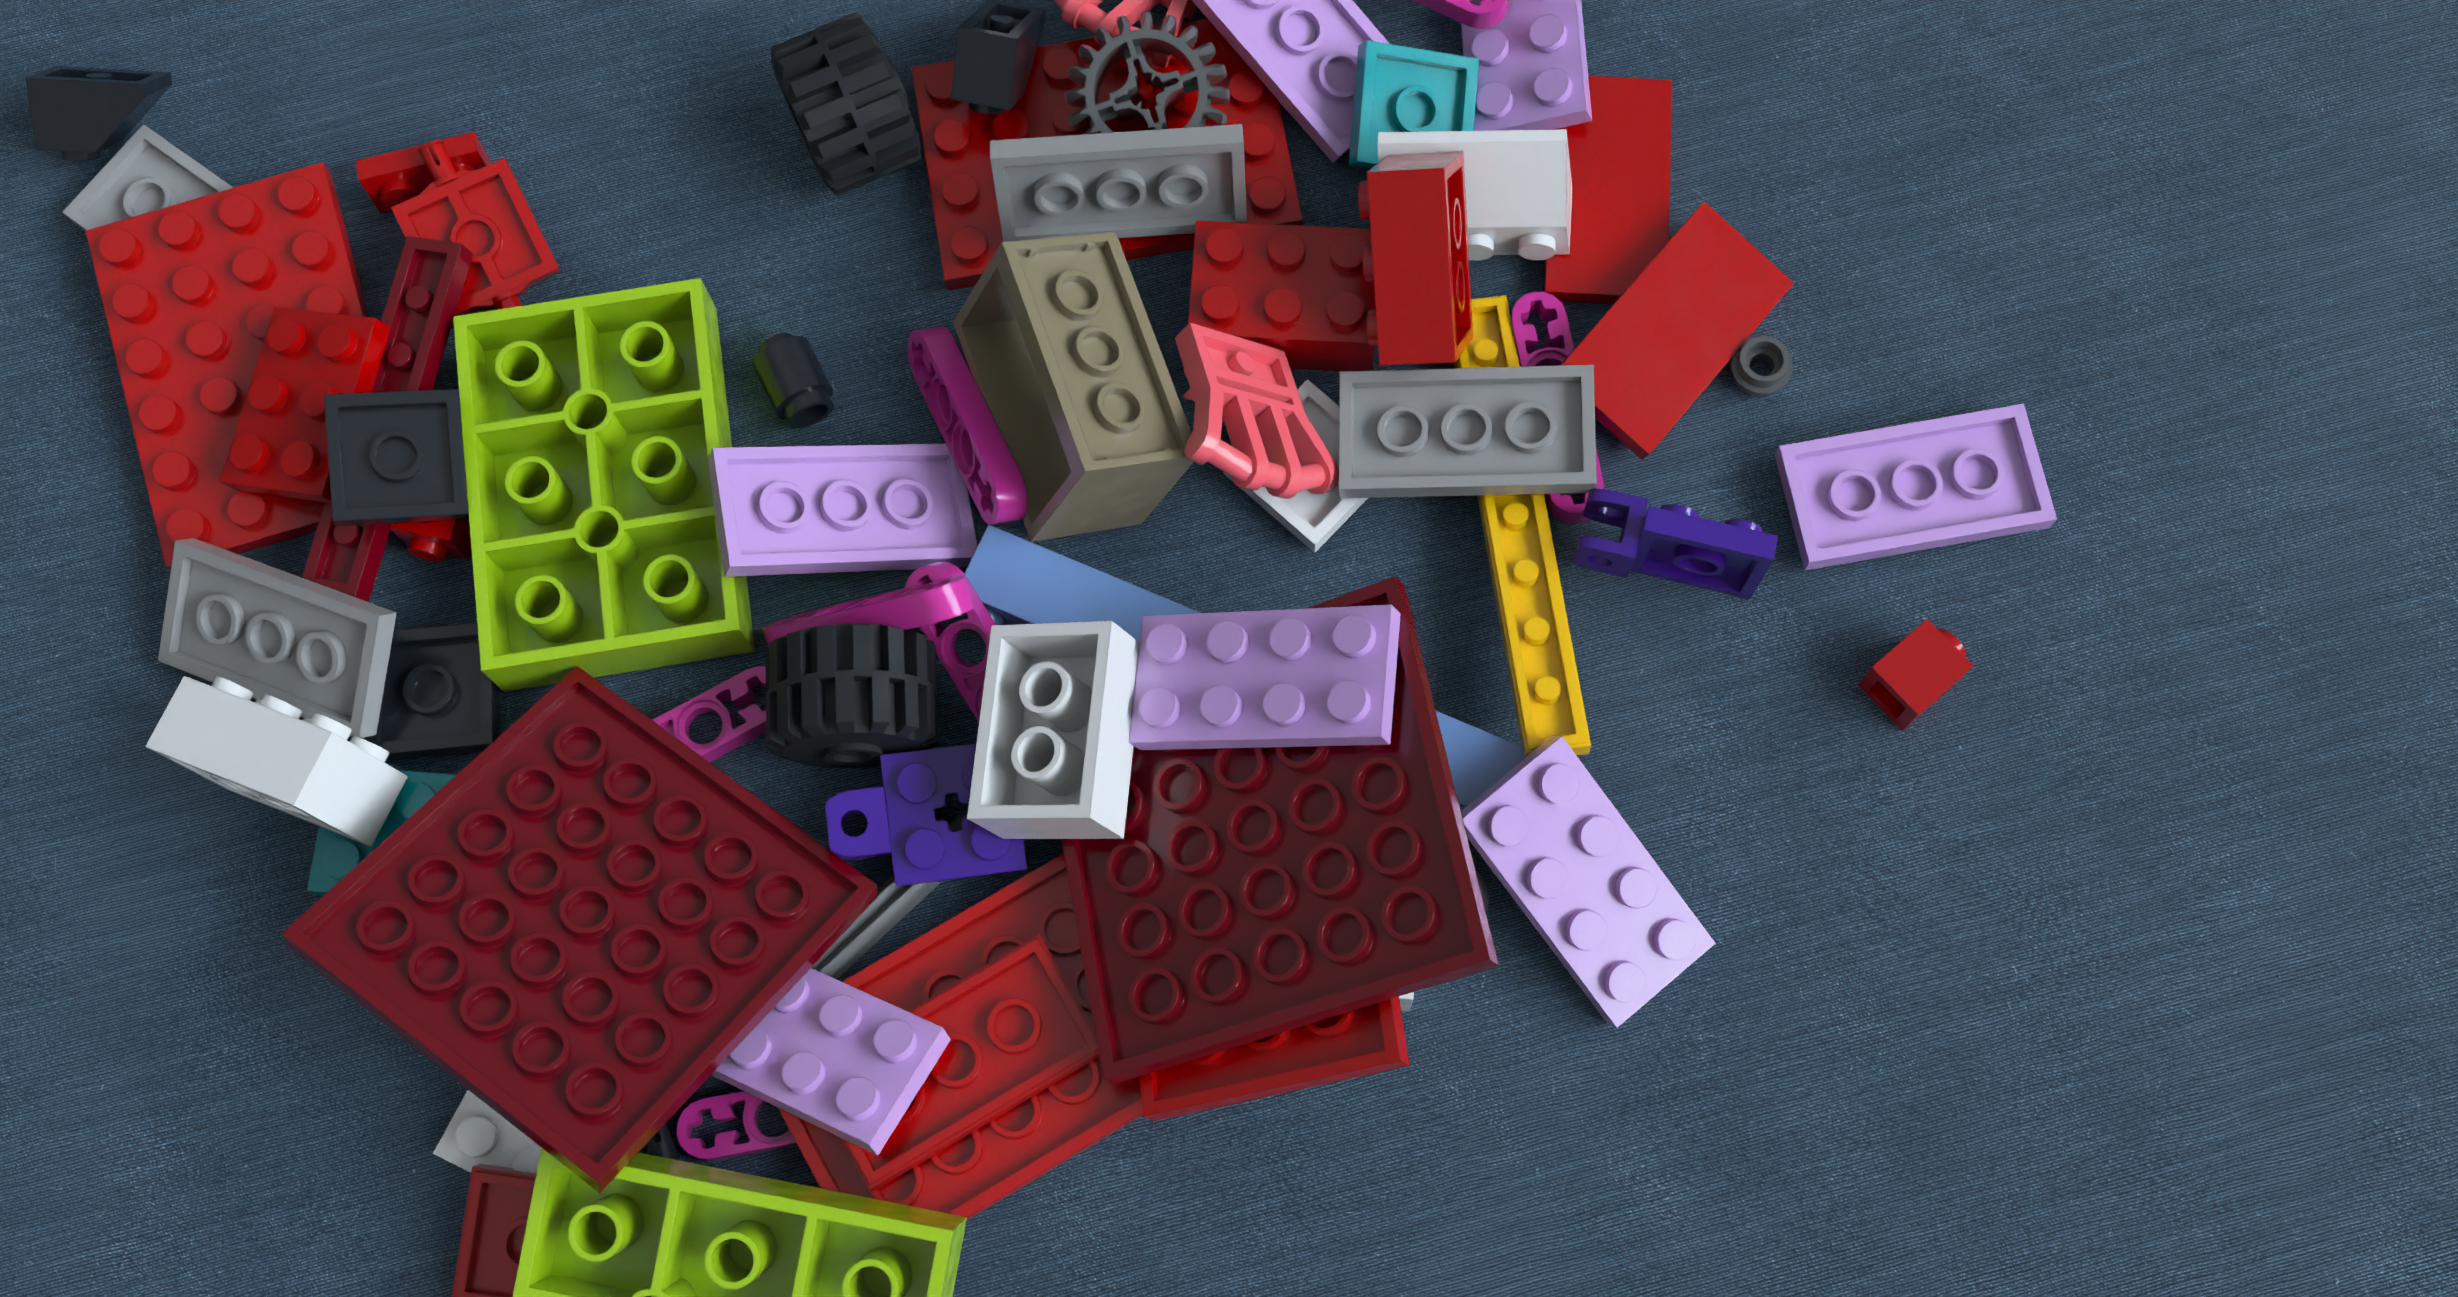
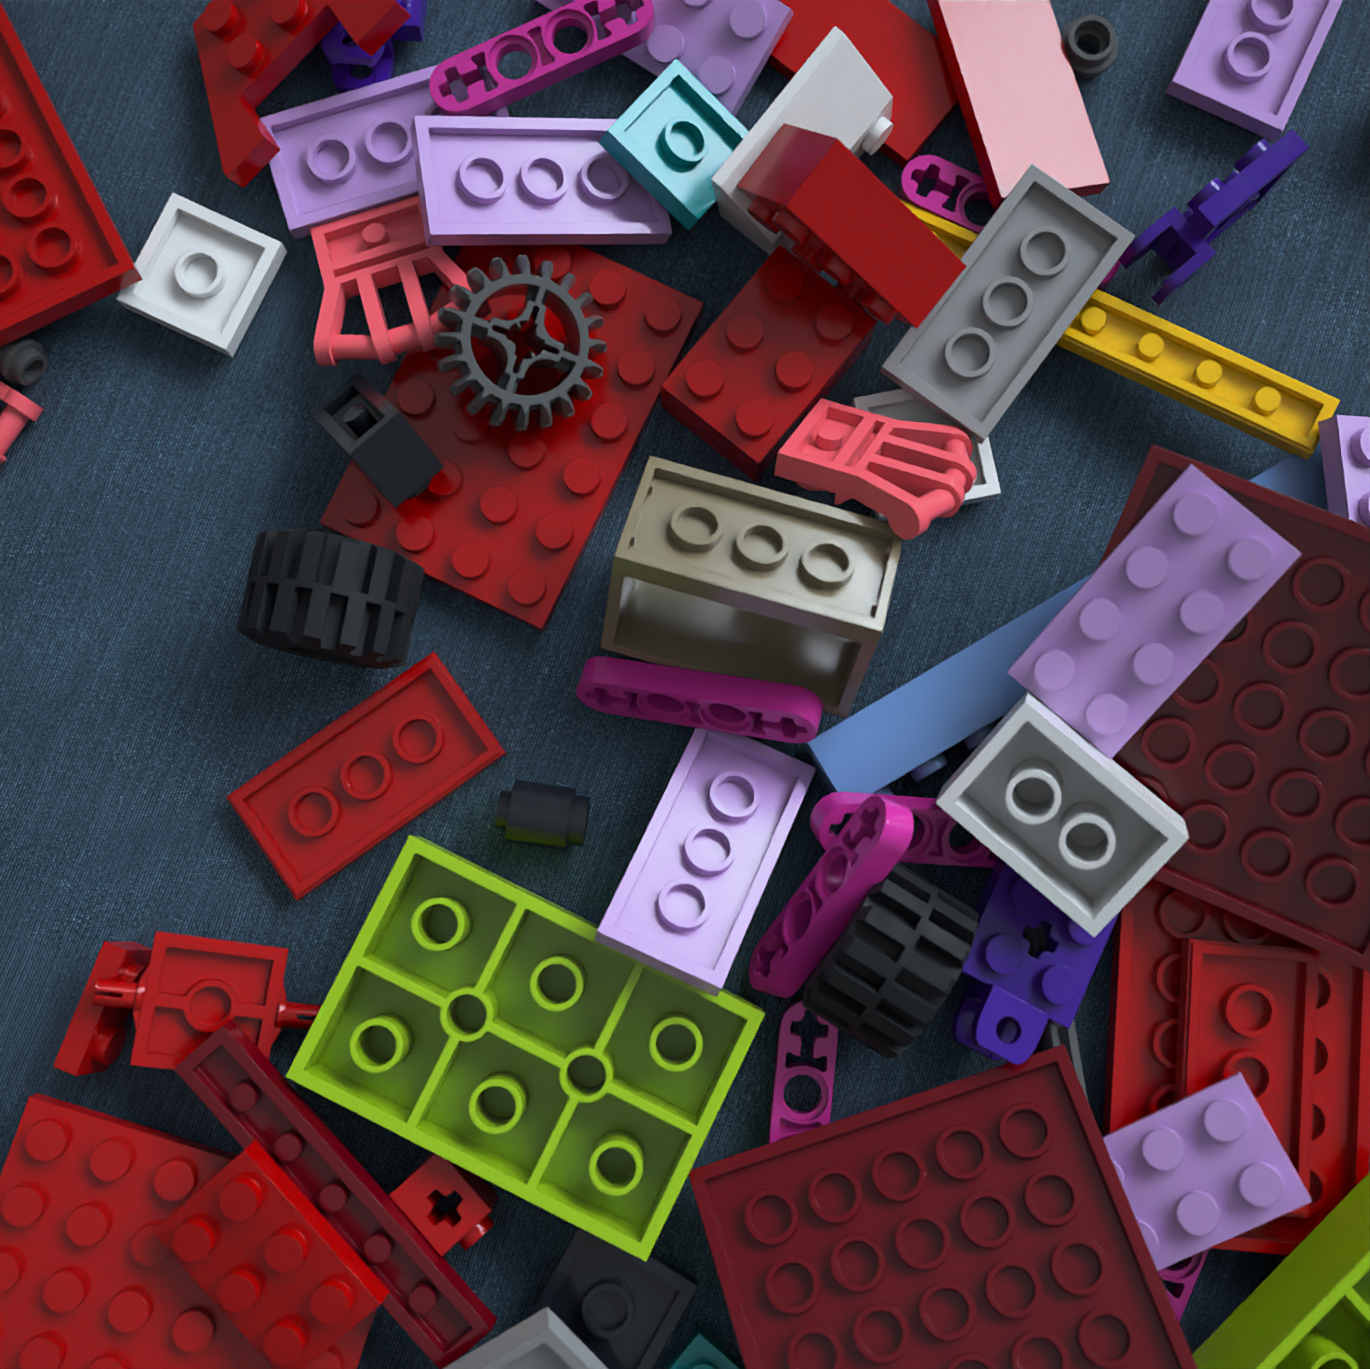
camera: 60 degrees left, 10 degrees up
(395, 457) = (395, 1216): black plate -> none
(738, 238) = (366, 776): none -> red tile
(1119, 182) = (591, 420): light grey plate -> none

